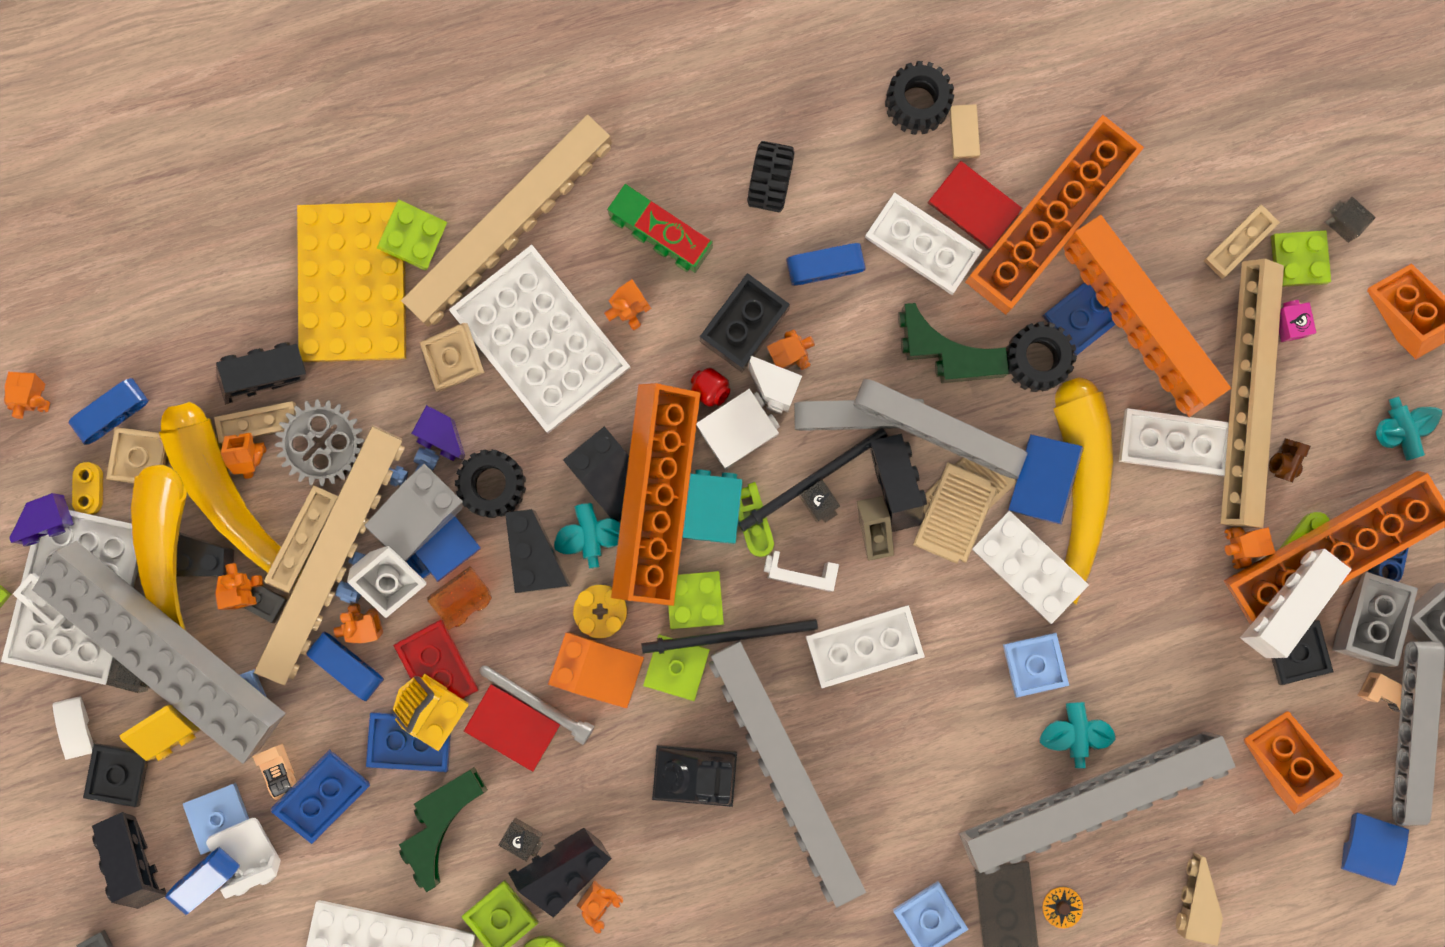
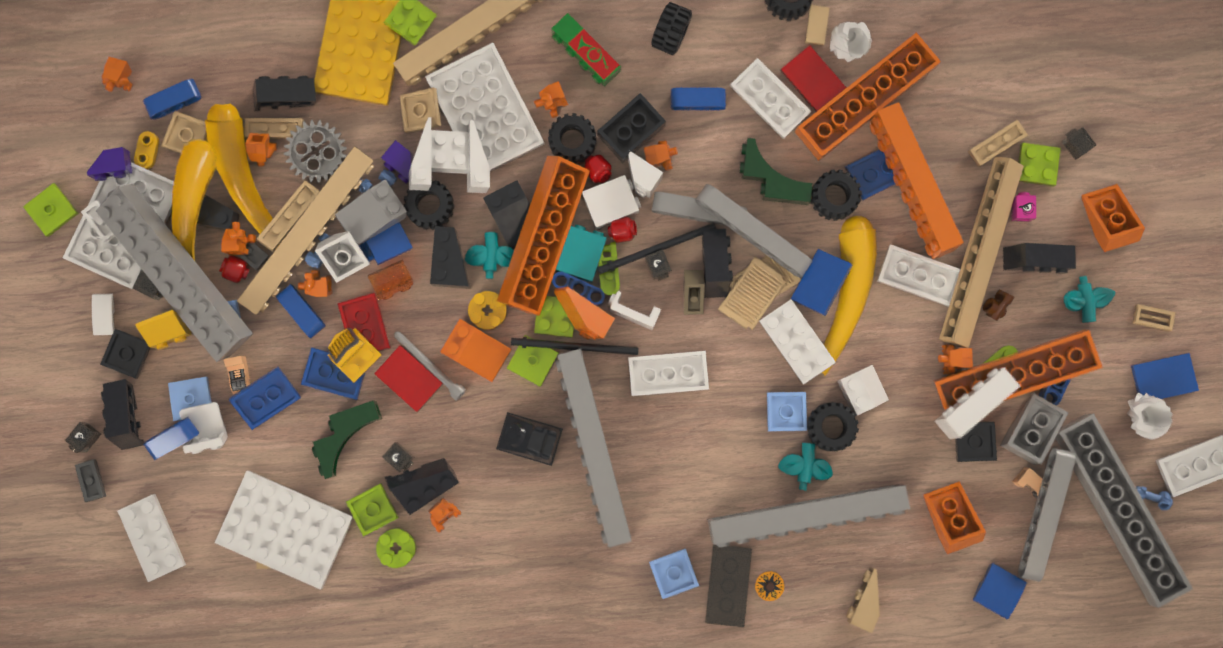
camera: 15 degrees right, 0 degrees up
(79, 904) = (82, 437): none -> clear smoke brick
(241, 628) = (234, 269): none -> red head
(506, 409) = (450, 154): none -> white wedge
(660, 332) = (572, 123): none -> black tyre
(708, 548) = (573, 281): none -> blue beam
(735, 593) = (584, 315): none -> orange slope
(761, 463) = (622, 229): none -> red head
(1015, 143) = (850, 40): none -> white hair
(1124, 680) = (849, 426): none -> black tyre
(1132, 615) = (863, 390): none -> white slope
(1331, 384) = (1039, 257): none -> black wedge

